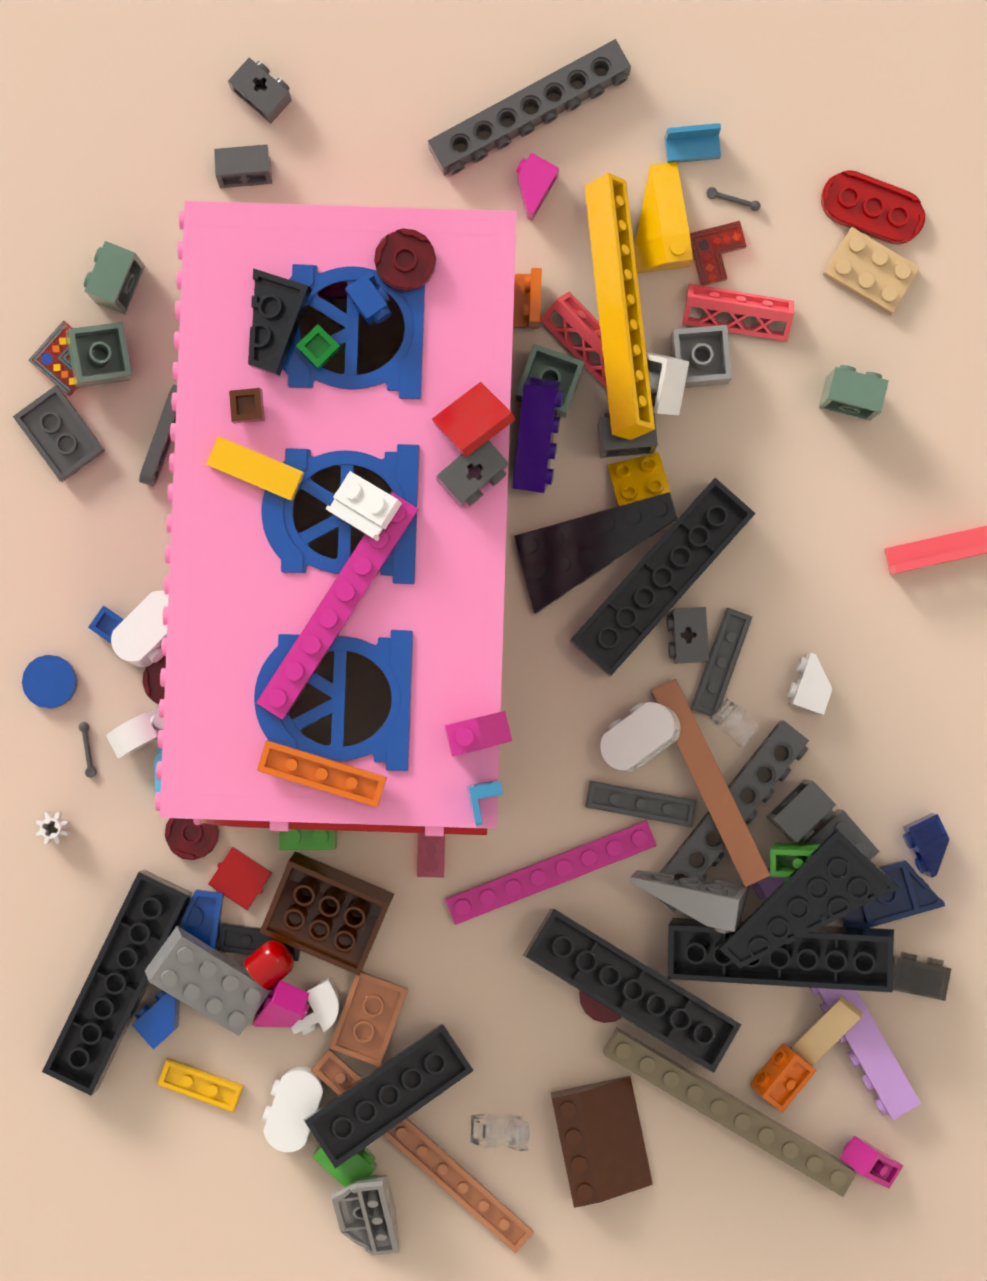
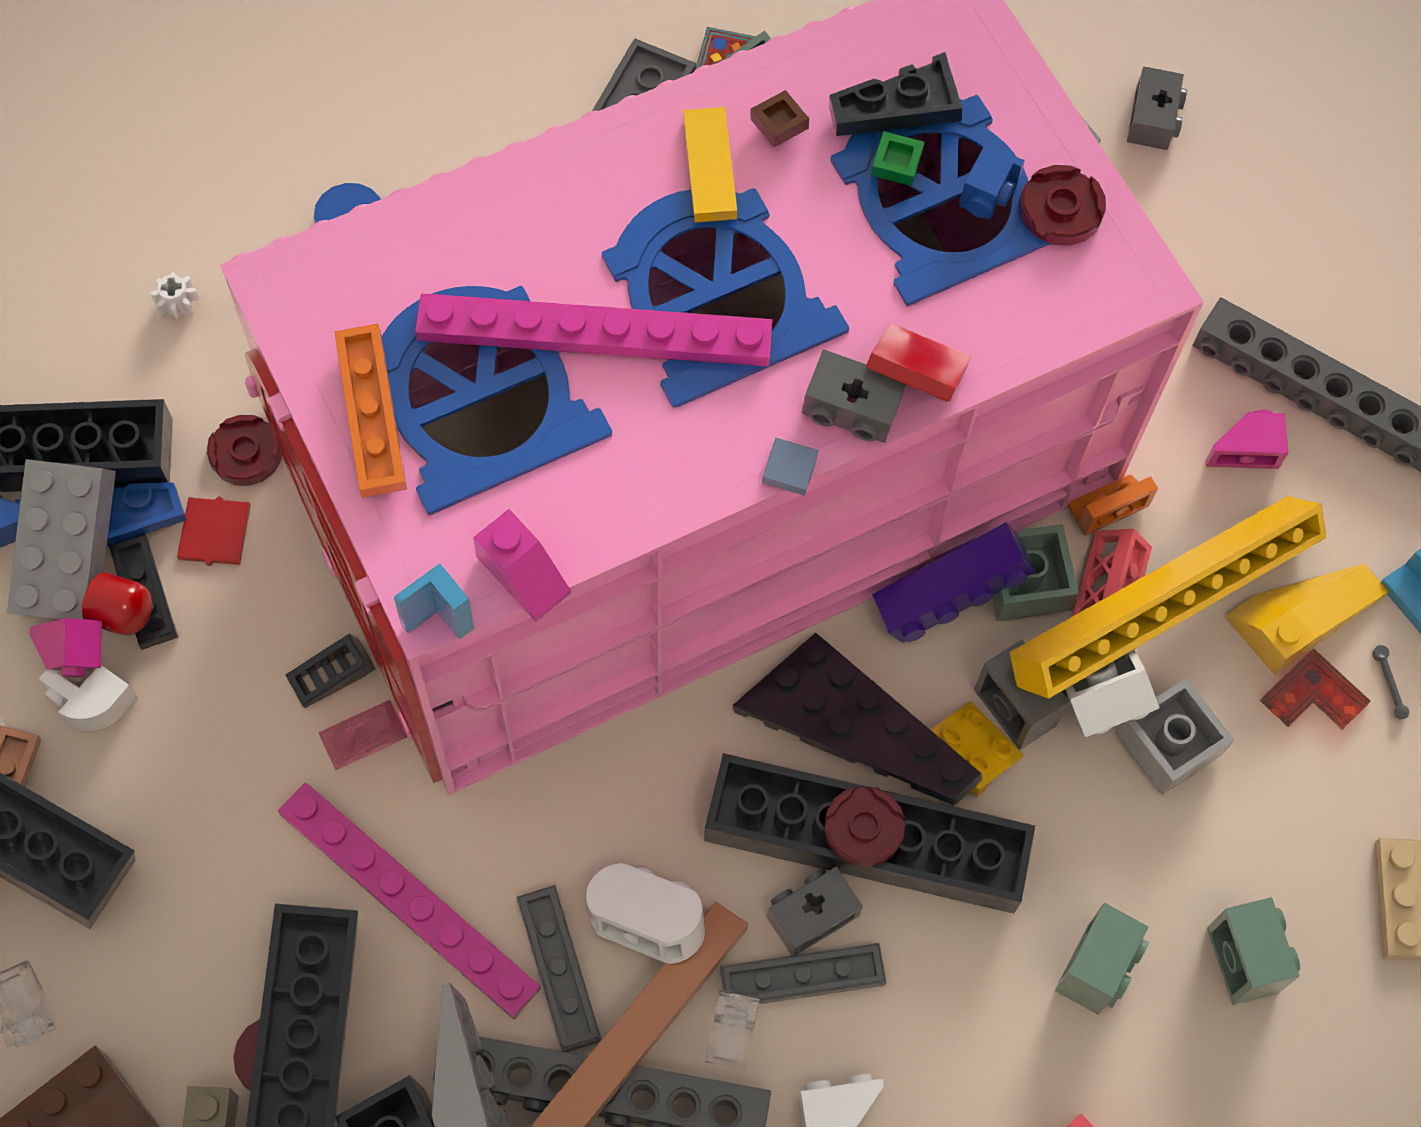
camera: 55 degrees right, 20 degrees down
(307, 839) = (306, 576): bright green brick -> none
(326, 913) = (217, 644): reddish brown slope -> none
(364, 506) = (736, 294): white plate -> none
(368, 1018) = (103, 764): nougat plate -> none
(378, 873) = (336, 681): none -> black slope
(494, 535) = (790, 466): none -> sand blue tile
(662, 580) = (864, 826): none -> dark red tile
(739, 303) = (1272, 757): coral fence -> none
(811, 484) = (1101, 959): none -> sand green brick

